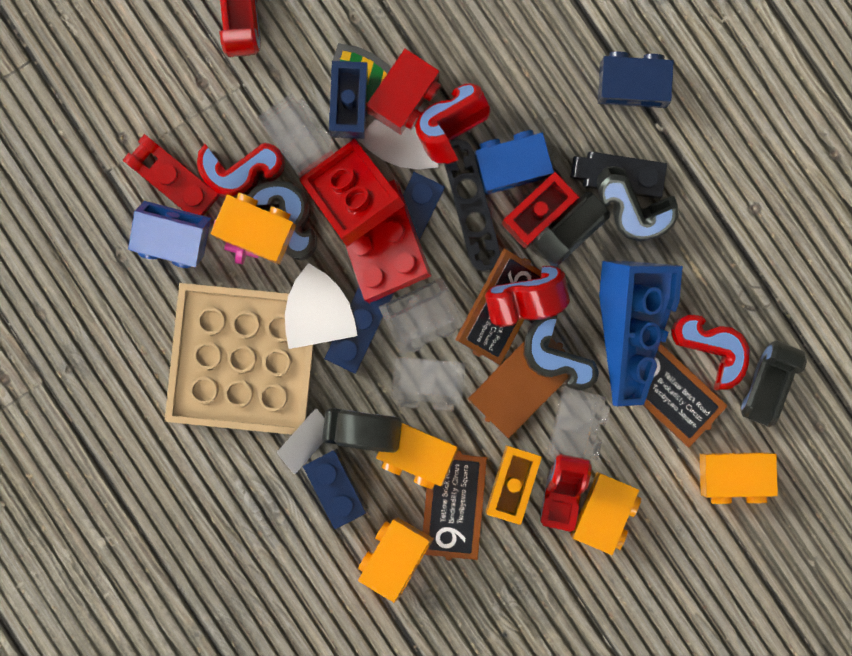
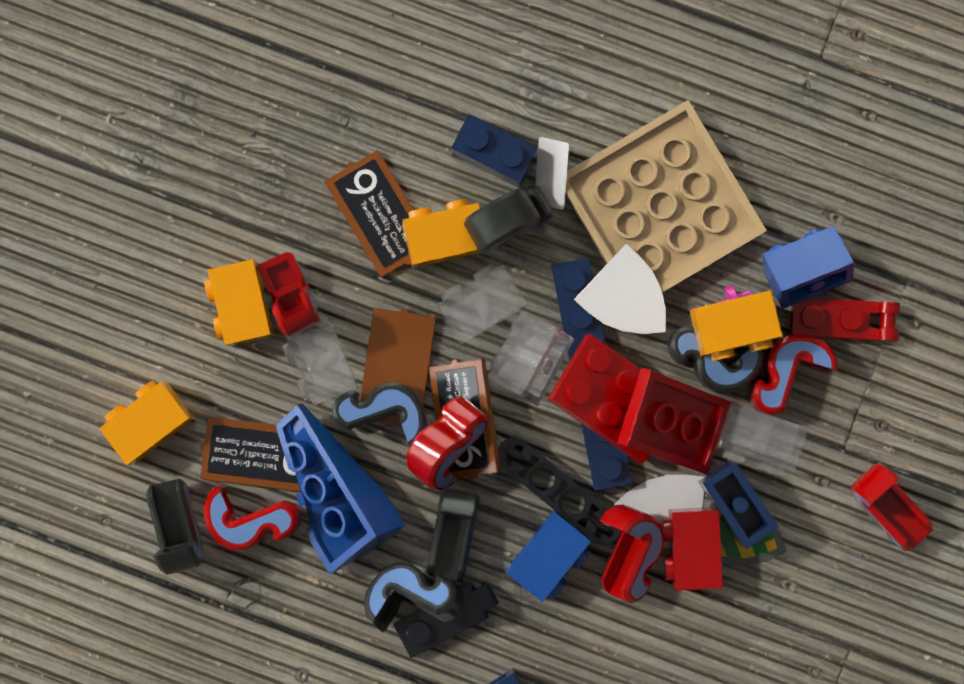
camera: 140 degrees right, 0 degrees up
(394, 559) = (396, 128): light orange brick -> none
(513, 484) = (339, 268): light orange brick -> none
(539, 210) = (493, 530): red brick -> none

